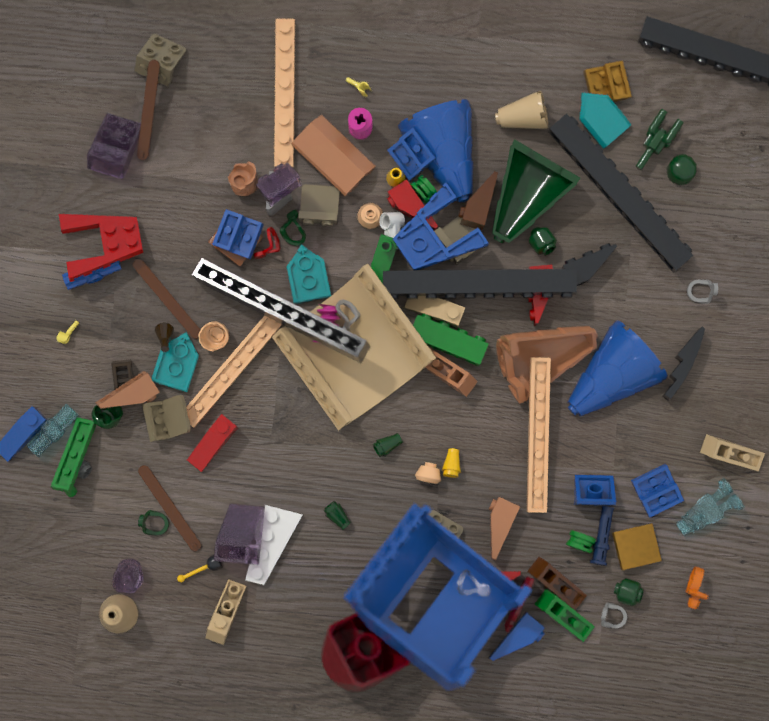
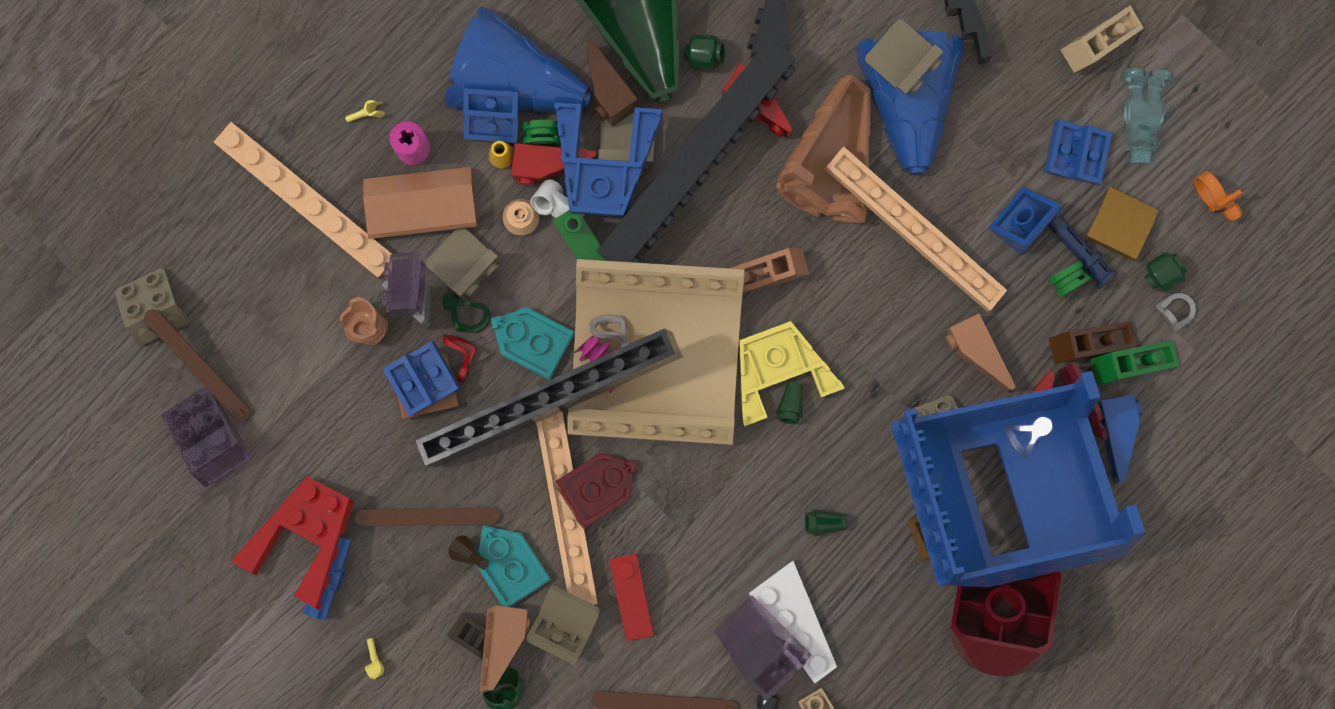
camera: 50 degrees left, 0 degrees up
(213, 336) = (513, 498): light nougat hair -> none
(256, 376) = (597, 487): none -> dark red tile
(404, 415) = (774, 358): none -> light yellow wing
(428, 473) = (860, 384): light nougat cone -> none
(438, 309) = (687, 227): tan slope -> none
(451, 341) = (734, 240): green brick -> none
(452, 464) = (871, 351): yellow cone -> none
(625, 350) = (903, 57): none -> dark tan bracket

